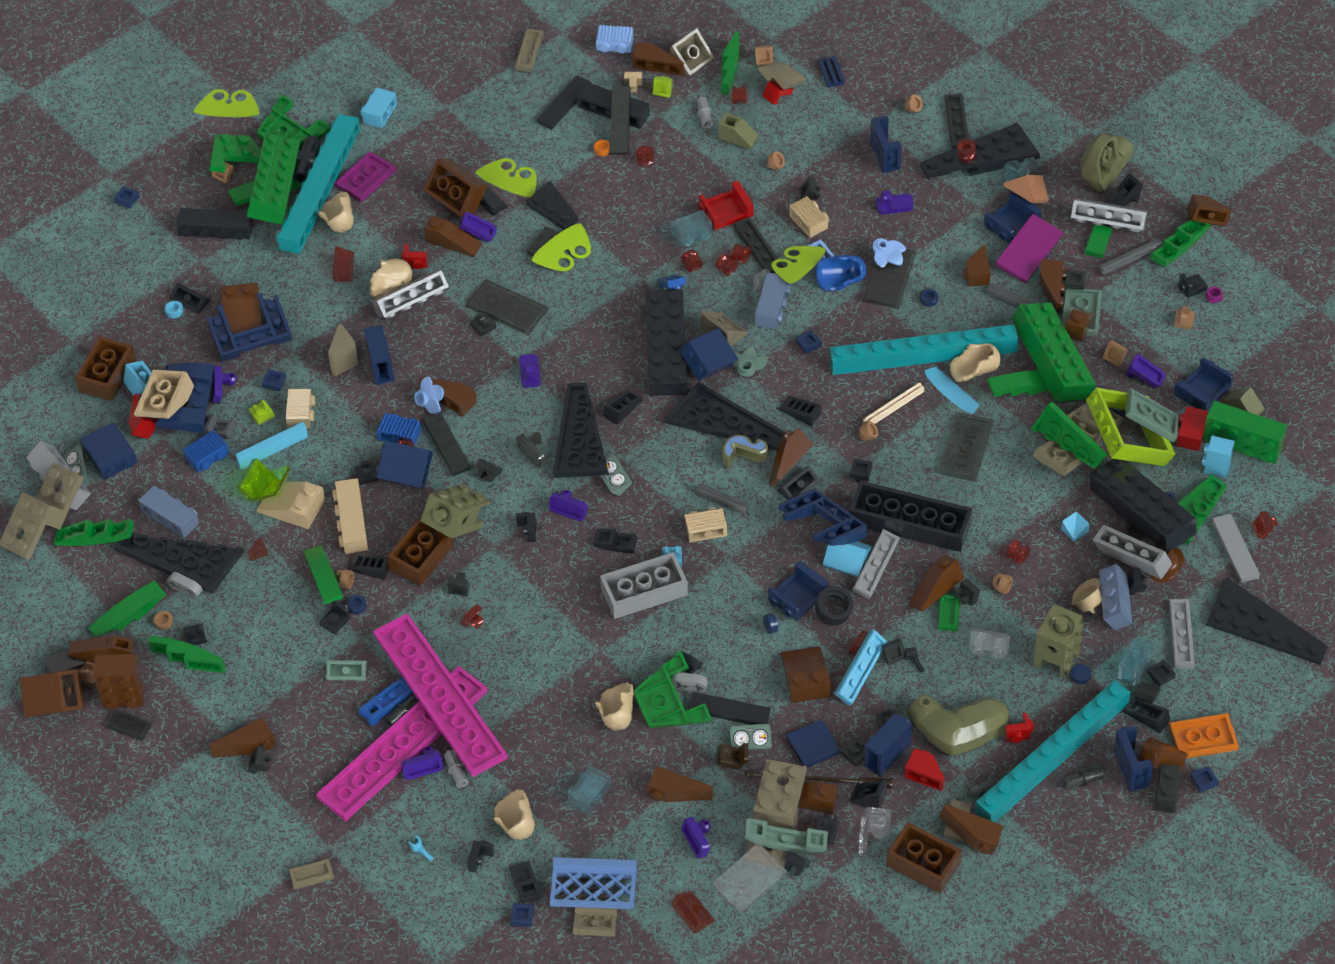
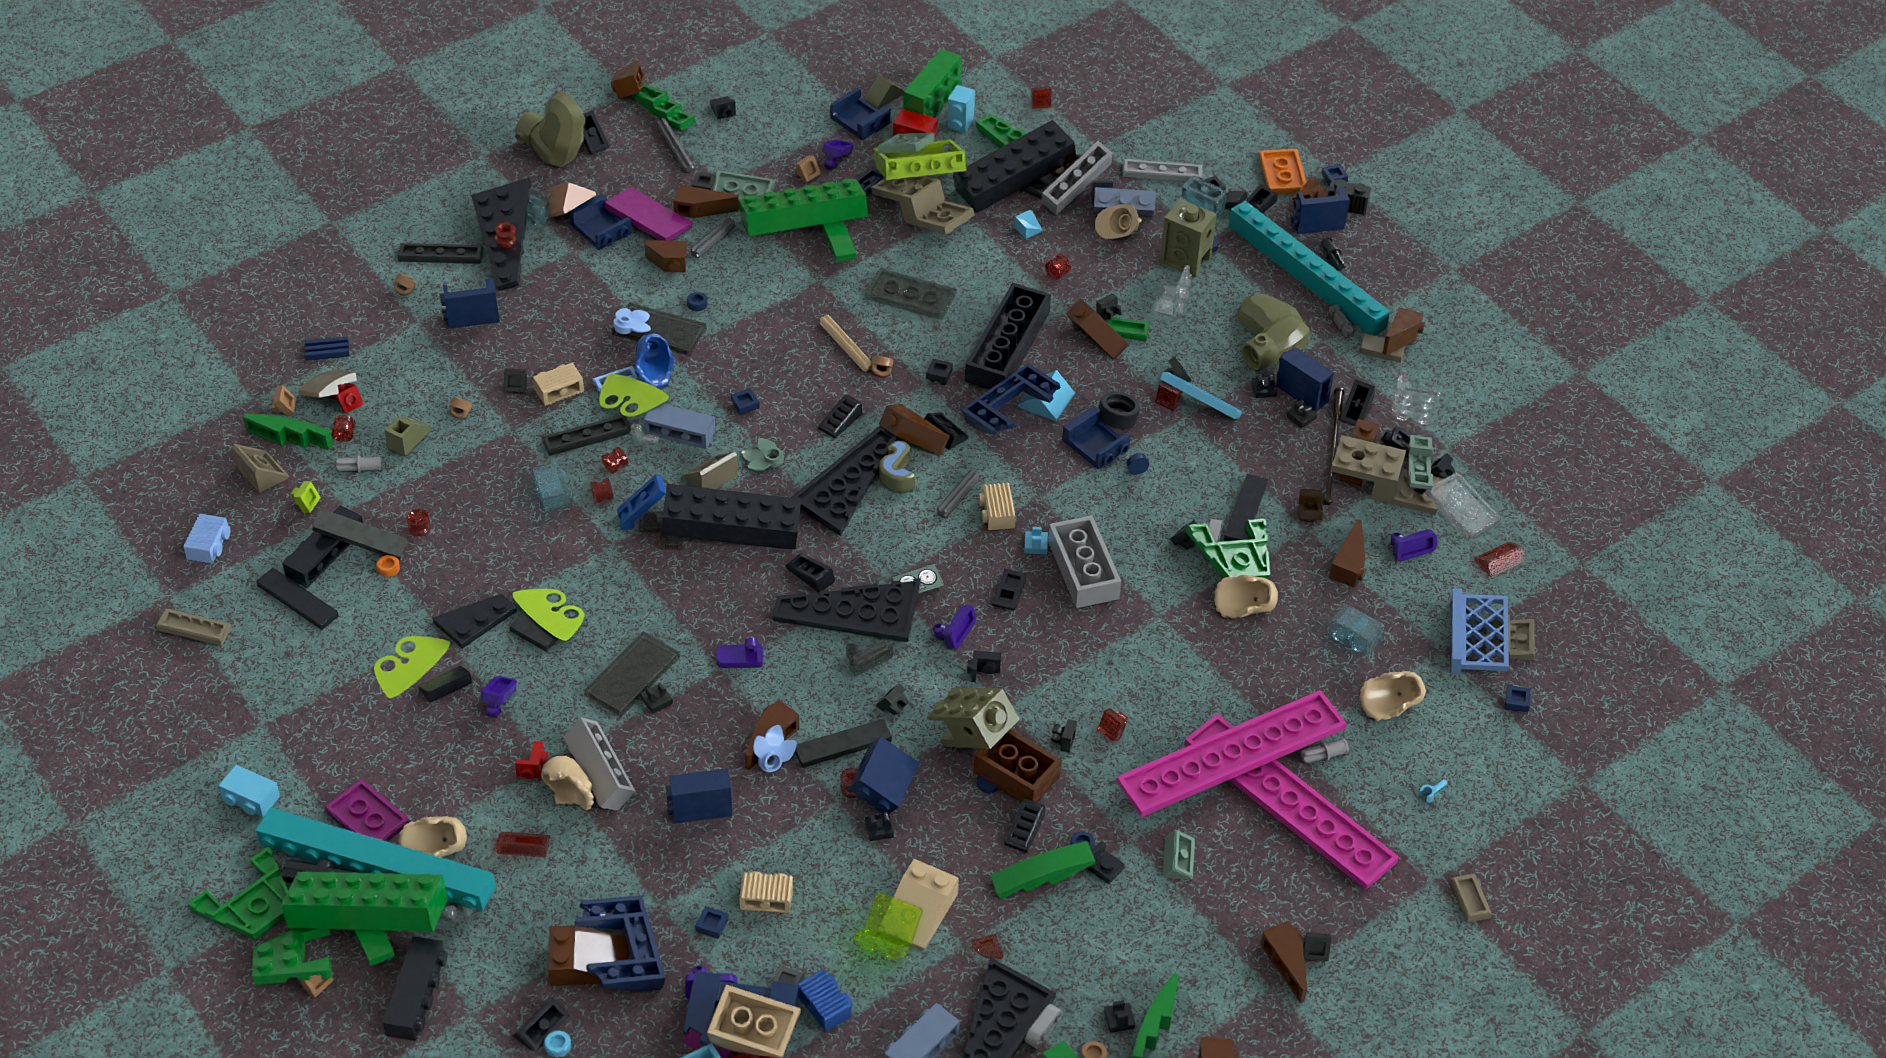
camera: 90 degrees left, 5 degrees down
(212, 107) = (187, 970): lime piece -> none
(261, 412) = (761, 939): lime tile -> none
(272, 445) = (824, 924): medium azure tile -> none
(342, 352) = (684, 835): dark tan slope -> none
(346, 580) = (1046, 844): medium nougat tile -> none
(351, 516) = (950, 840): tan brick -> none
(385, 701) = (1231, 814): blue plate -> none
(396, 428) = (819, 787): blue brick -> none
(401, 710) = (1243, 799): pearl dark grey axle -> none
(422, 765) = (1318, 772): dark purple piece -> none
(447, 235) = (504, 723): reddish brown slope -> none
(455, 187) = (432, 703): reddish brown brick -> none
(477, 853) = (1444, 734): black bracket -> none
(525, 882) = (1476, 695): black slope -> none
(633, 80) = (288, 525): tan tile -> none
(655, 59) = (255, 501): reddish brown slope -> none
(708, 354) = (763, 475): dark blue brick -> none
(727, 207) = (519, 452): red panel -> none
(741, 253) = (601, 445): clear red wheel -> none
(755, 736) = (1283, 494): slope -> none
(806, 674) = (1203, 441): reddish brown slope -> none
(813, 744) = (1290, 446): dark blue tile -> none
(876, 564) = (1075, 380): light grey tile -> none
(893, 204) = (552, 315): dark purple piece -> none
(911, 653) = (1183, 359): black hand -> none
(918, 349) = (778, 310): teal brick -> none
(924, 769) = (1331, 355): red slope -> none
(924, 857) = (1438, 366): reddish brown brick -> none
(951, 390) = (829, 299): medium azure piece -> none
(975, 361) = (806, 268): tan piece -> none
(1004, 584) = (1097, 282): medium nougat tile -> none
(1019, 732) = (1278, 285): red bracket -> none
(1062, 430) = (928, 199): green wing -> none
(1079, 323) = (765, 181): reddish brown slope -> none
(1098, 241) = (646, 166): green tile -> none
(1107, 213) = (618, 147): light grey brick -> none
(1184, 318) = (766, 119): medium nougat tile -> none
(1214, 294) = (740, 93): magenta plate -> none
(1235, 548) = (1066, 121): light grey tile -> none
(1252, 619) = (1152, 121): black wing -> none

